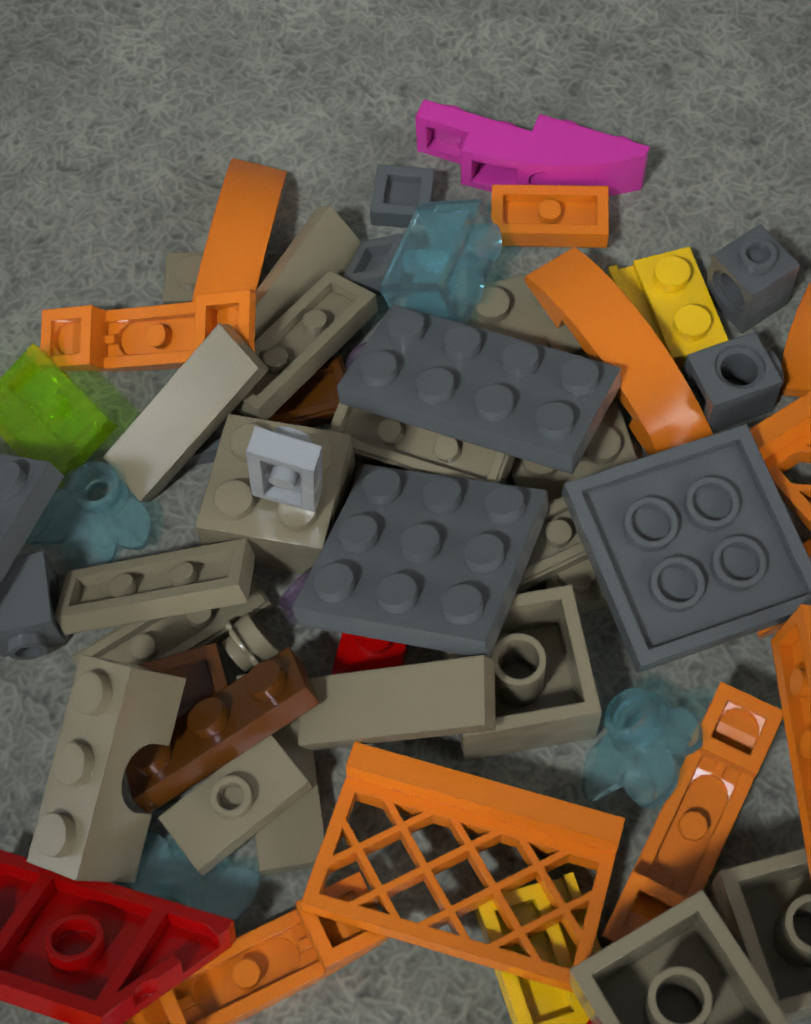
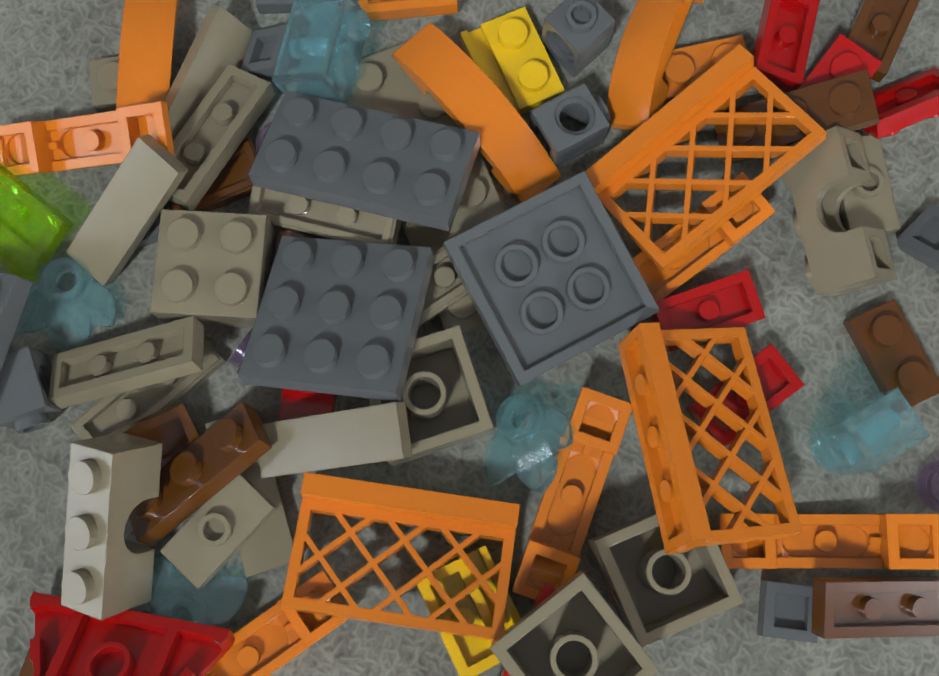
camera: 15 degrees left, 15 degrees up
(249, 642) = (212, 395): dark tan plate -> none
(285, 467) = (212, 264): light grey plate -> none

